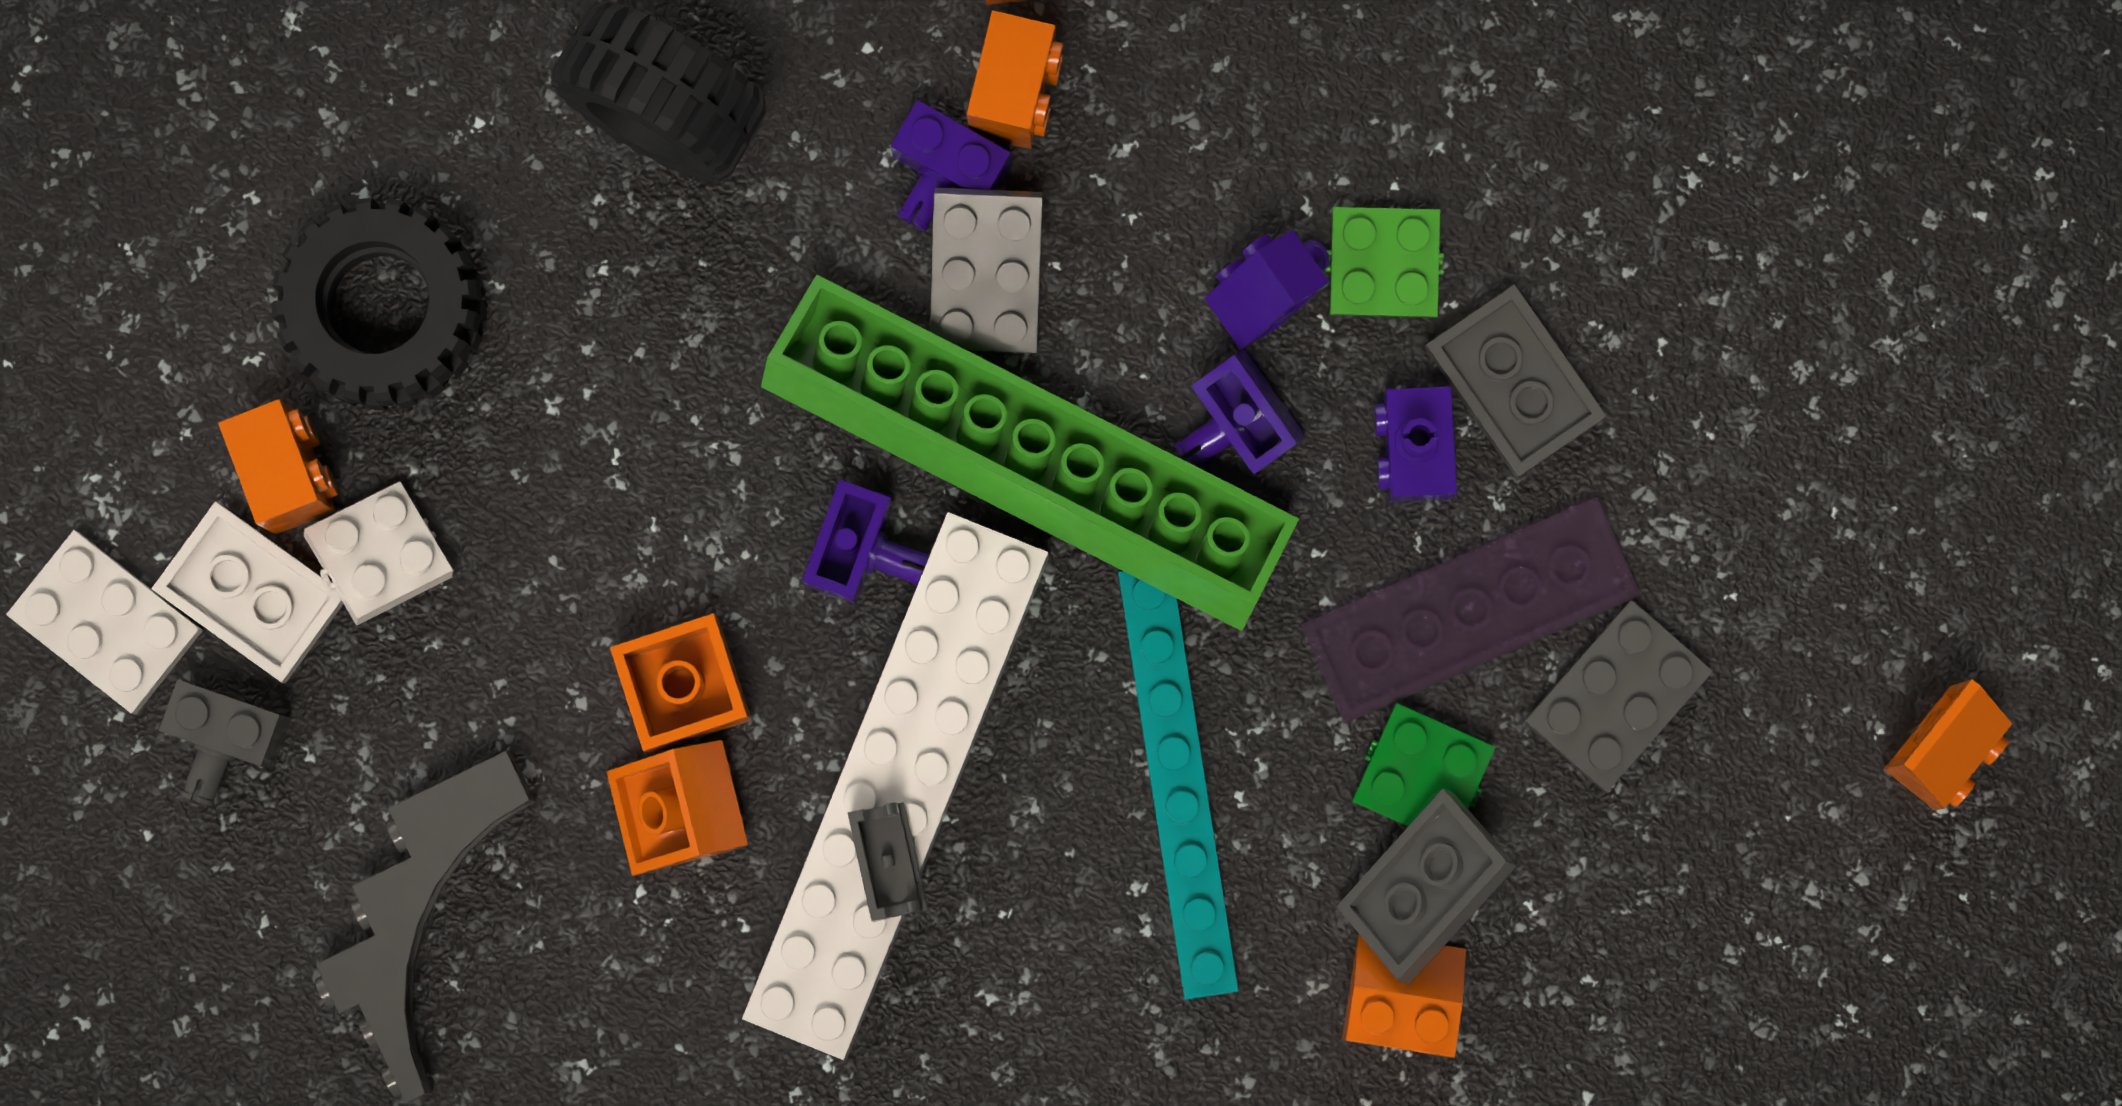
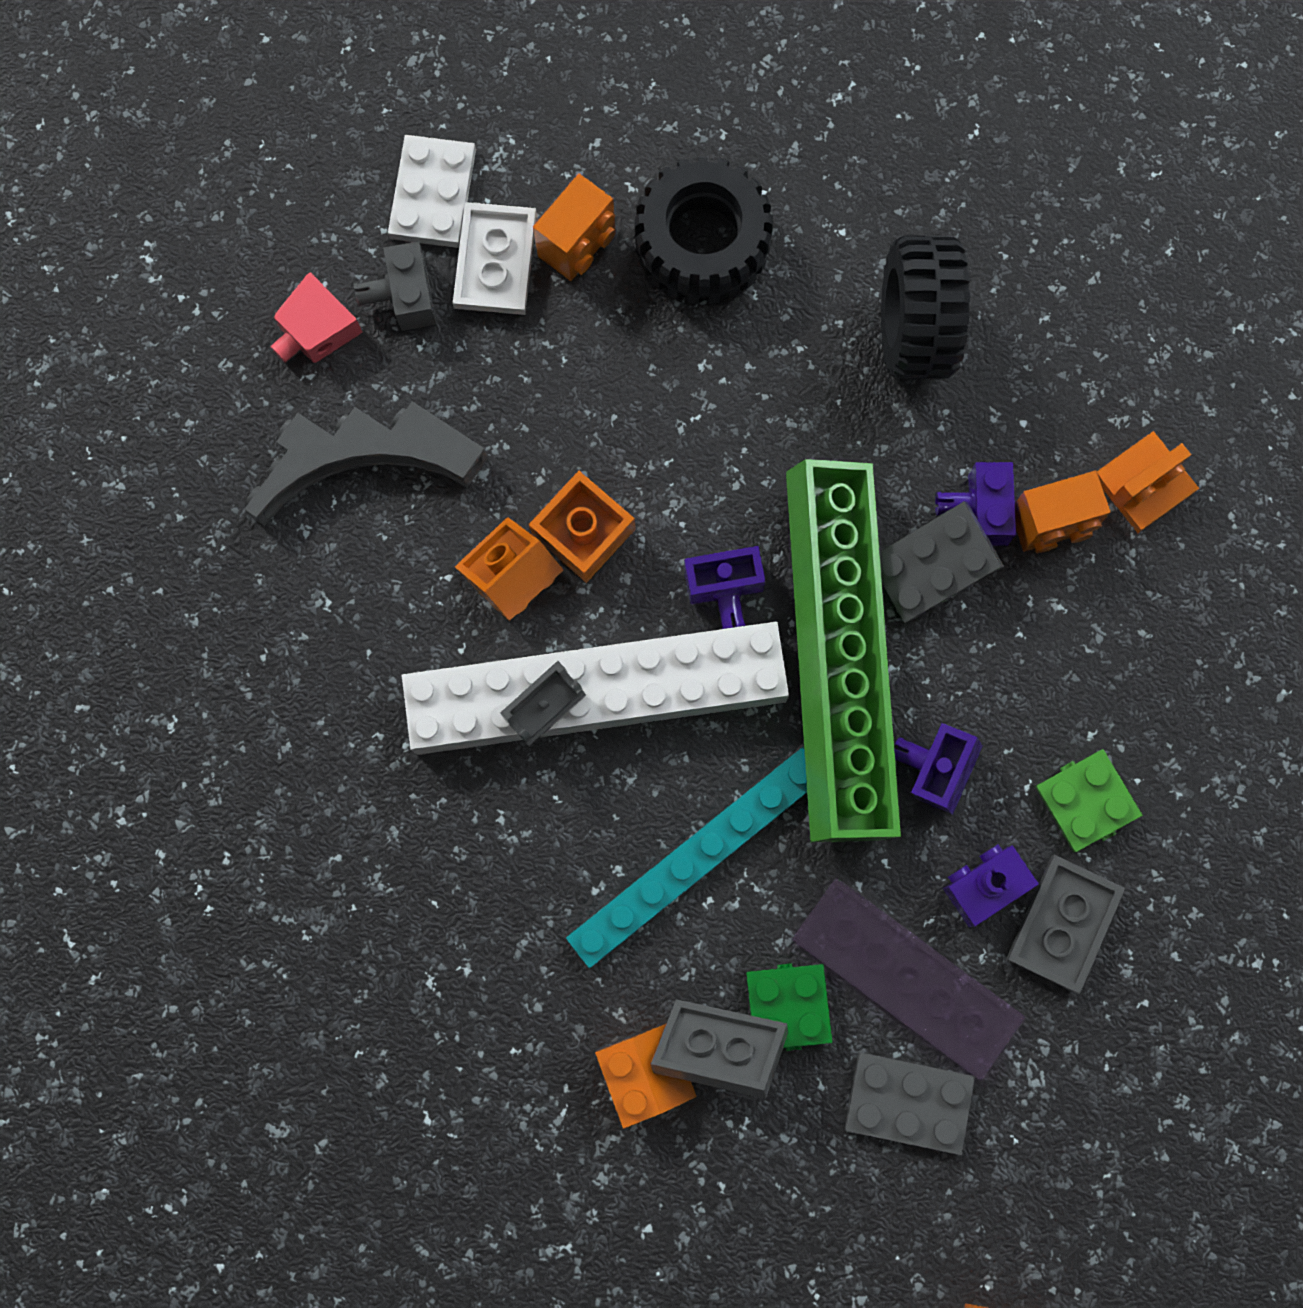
camera: 60 degrees right, 5 degrees down
(198, 878) = (313, 322): none -> coral torso
(378, 553) = (558, 314): white plate -> none
(1268, 286) = (1031, 735): dark purple brick -> none

